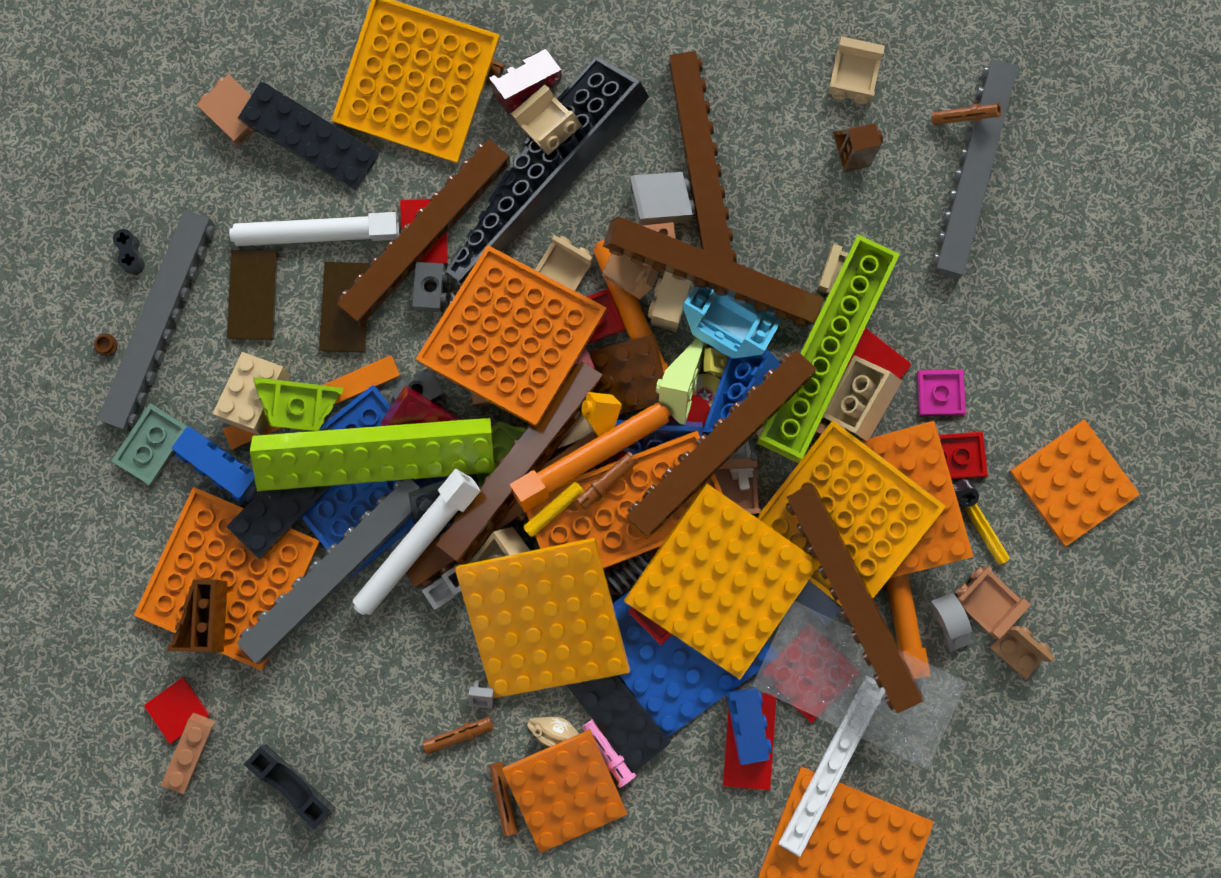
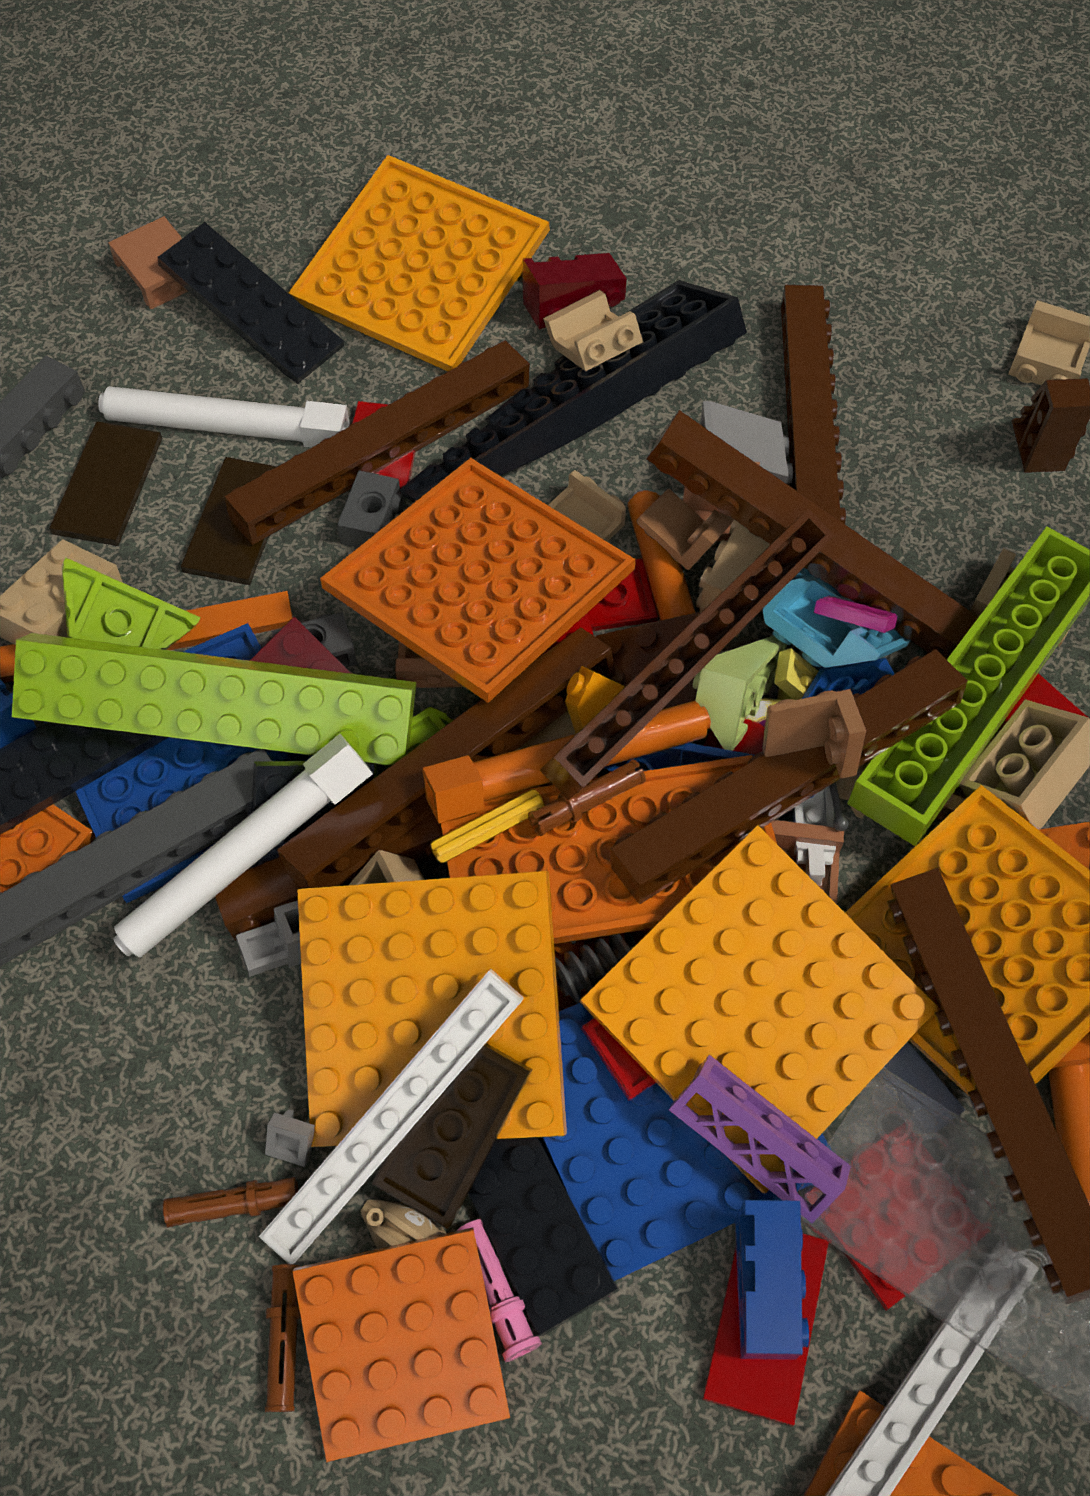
camera: 10 degrees right, 20 degrees down
(536, 681) = (391, 1117): none -> white tile
(568, 679) = (451, 1141): none -> dark brown tile
(652, 381) = (686, 655): none -> reddish brown brick
(737, 419) = (816, 721): none -> medium nougat bracket
(737, 653) = (770, 1127): none -> medium lavender fence
(747, 315) = (856, 613): none -> dark pink tile

